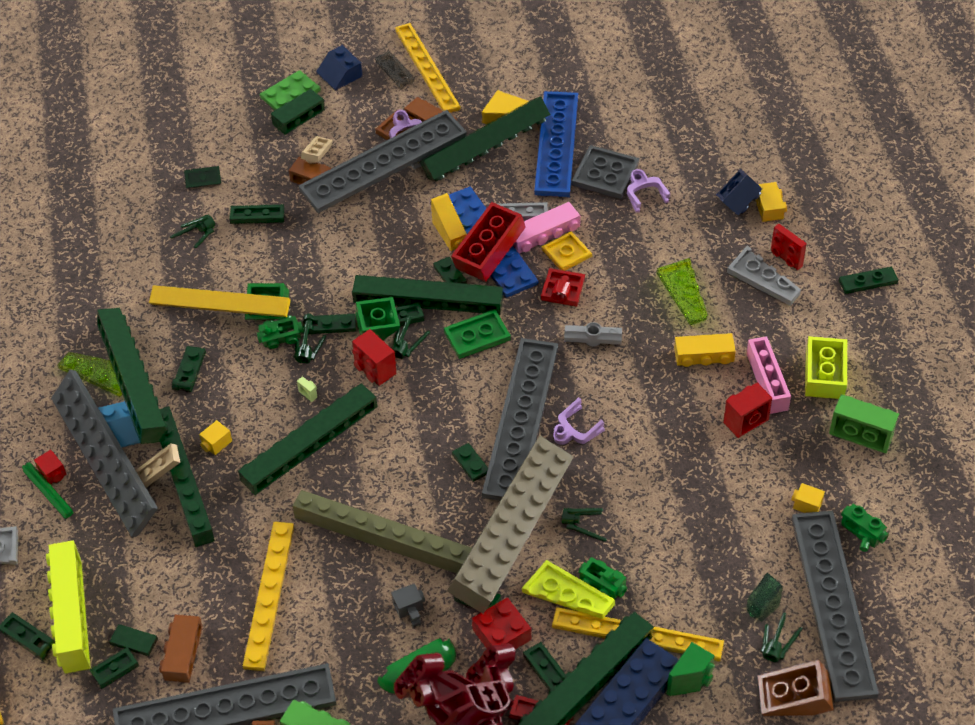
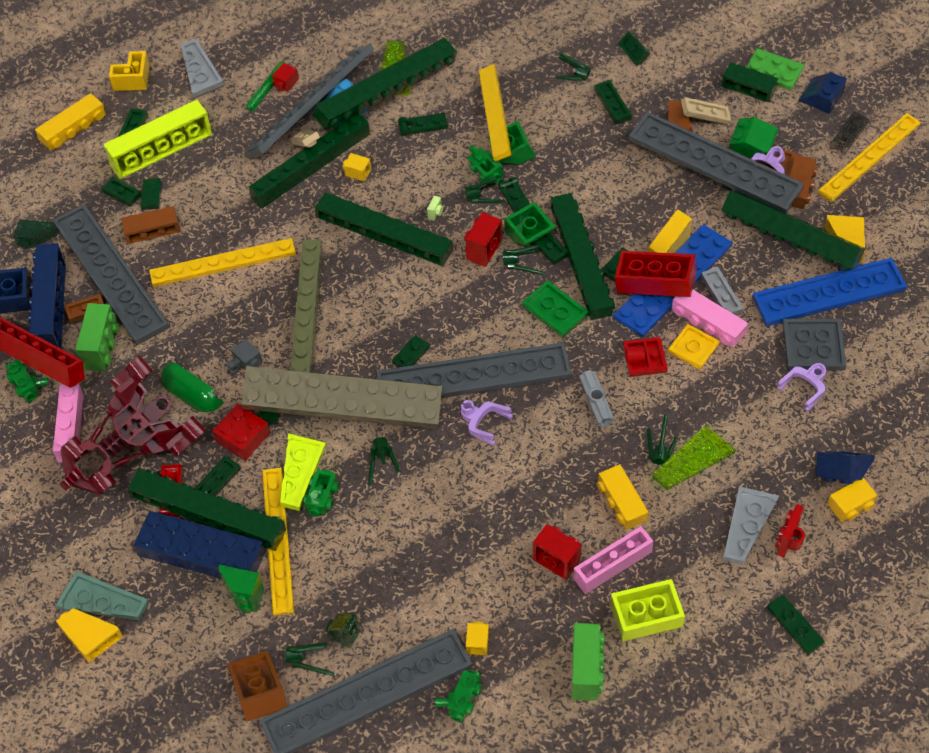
camera: 70 degrees right, 5 degrees up
(367, 128) = (753, 137): none -> green slope
(670, 310) = (659, 454): none -> dark green plant

